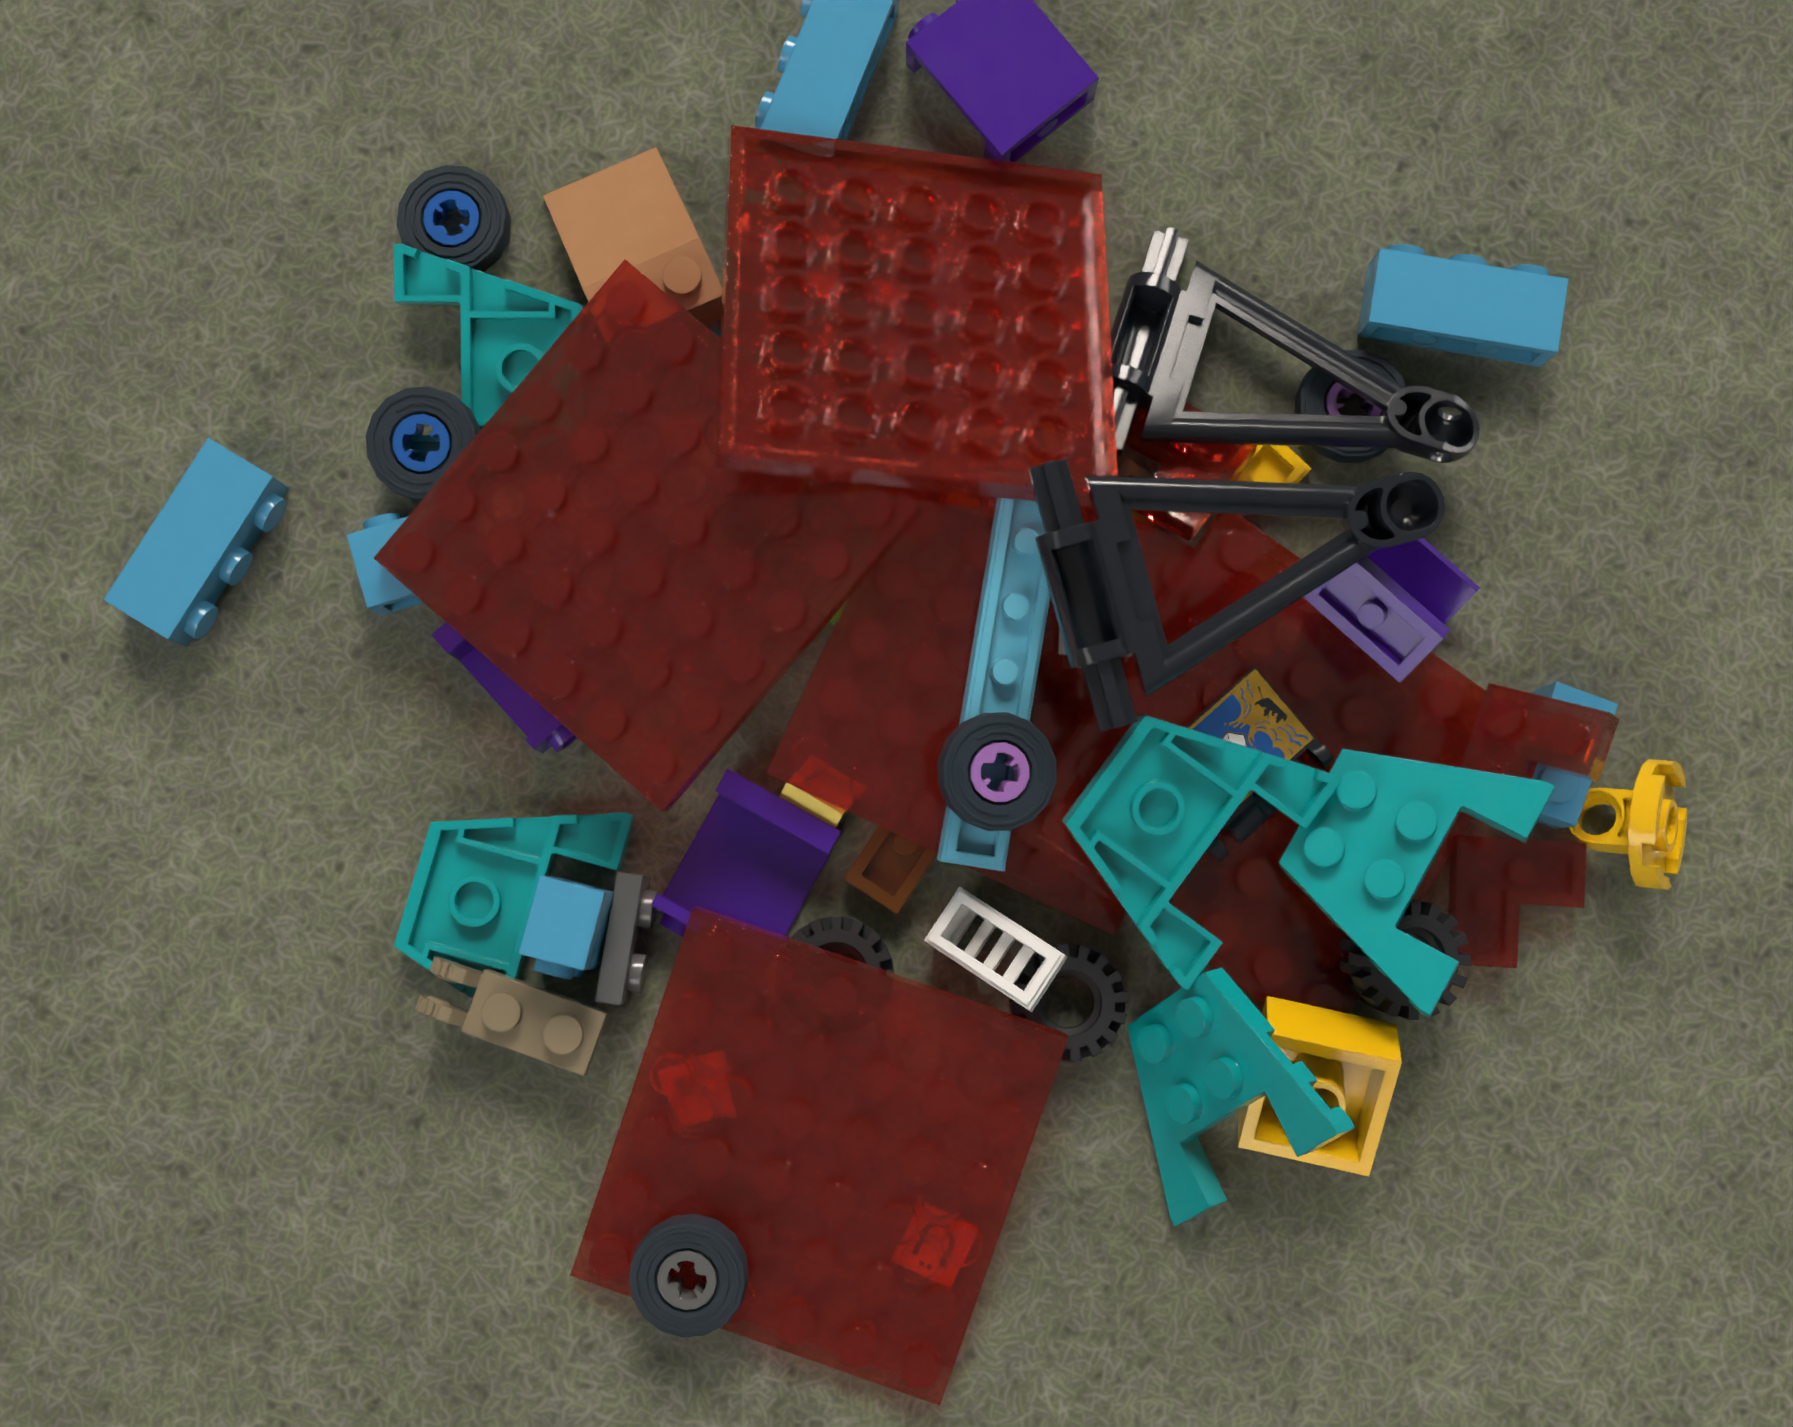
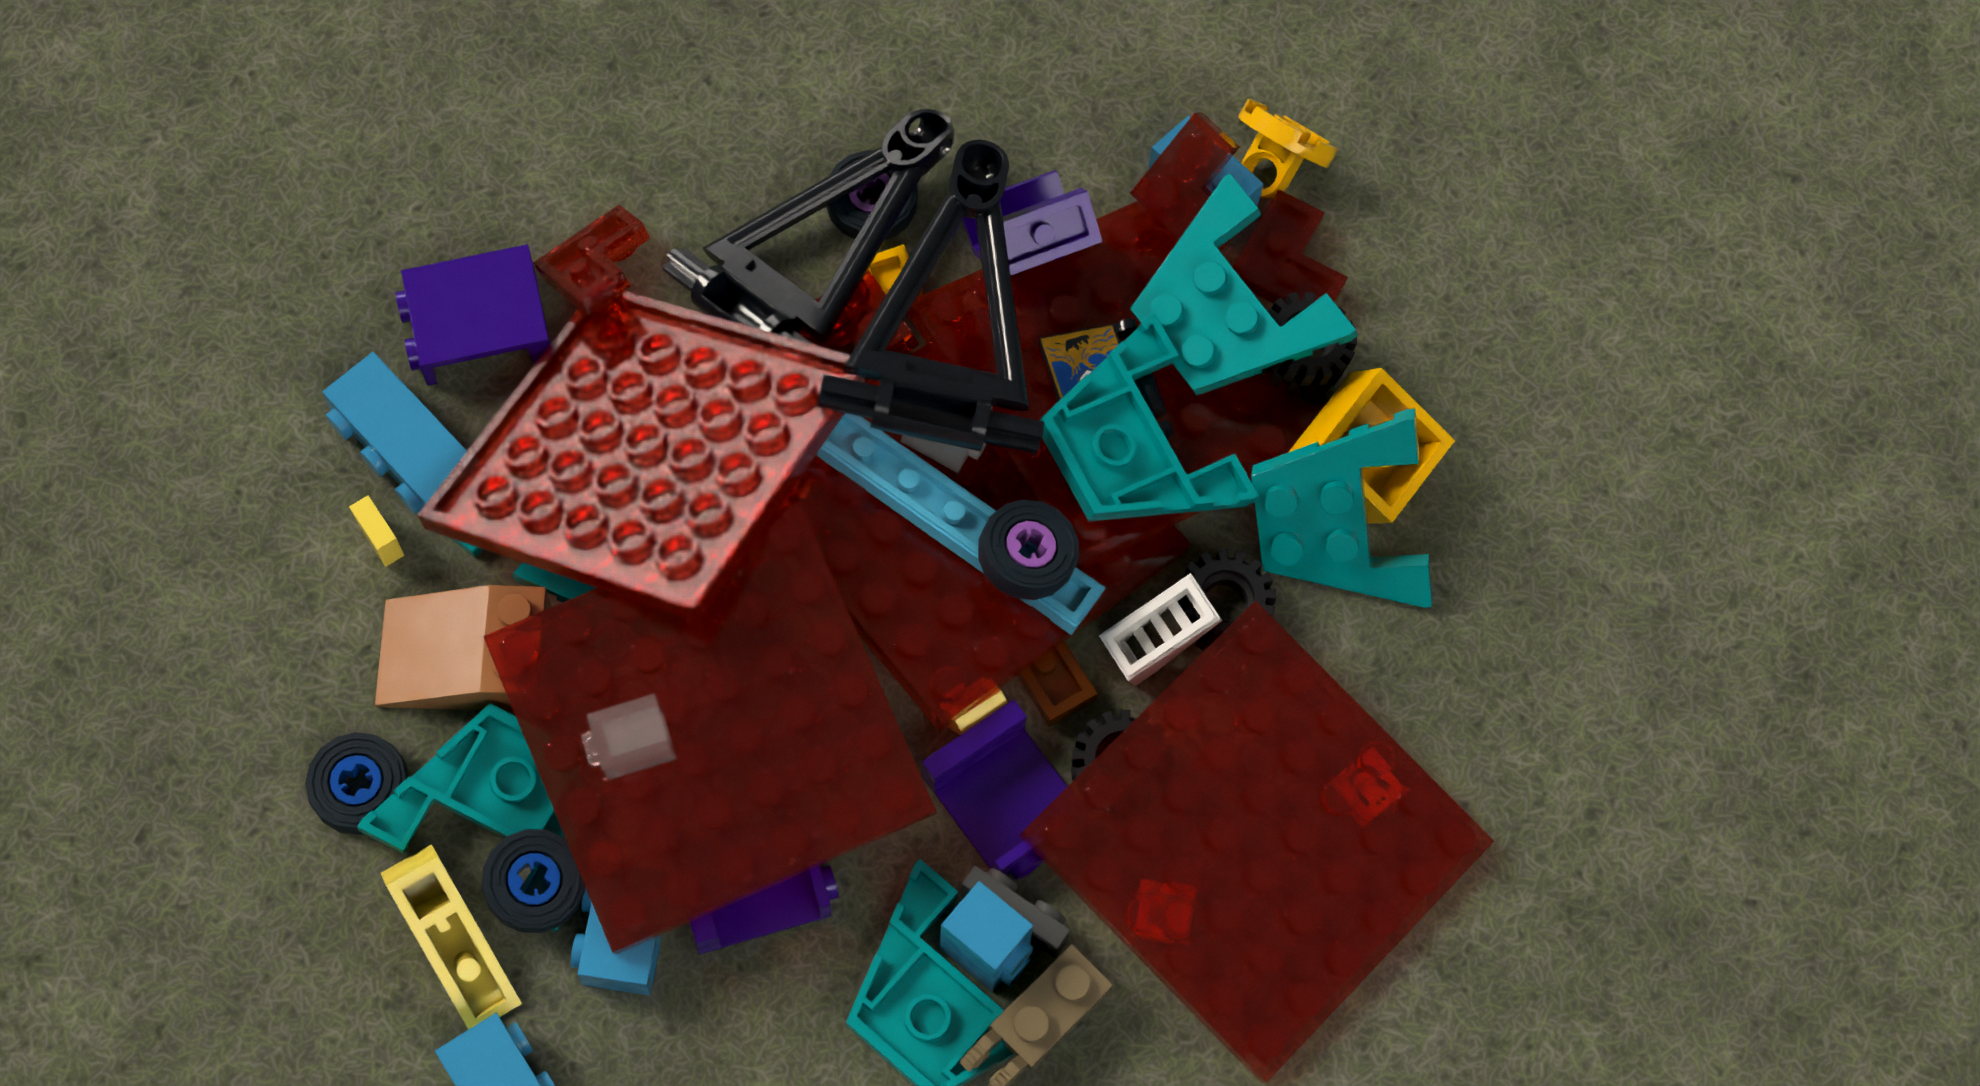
camera: 70 degrees left, 15 degrees down
(339, 388) = (450, 937): none -> light yellow slope
(573, 461) = (628, 737): none -> clear brick
(663, 1296) = (1317, 1002): black bush -> none
(716, 97) = (376, 530): none -> light yellow tile
(1114, 144) = (584, 264): none -> clear red plate
(1462, 305) = (837, 86): dark azure brick -> none

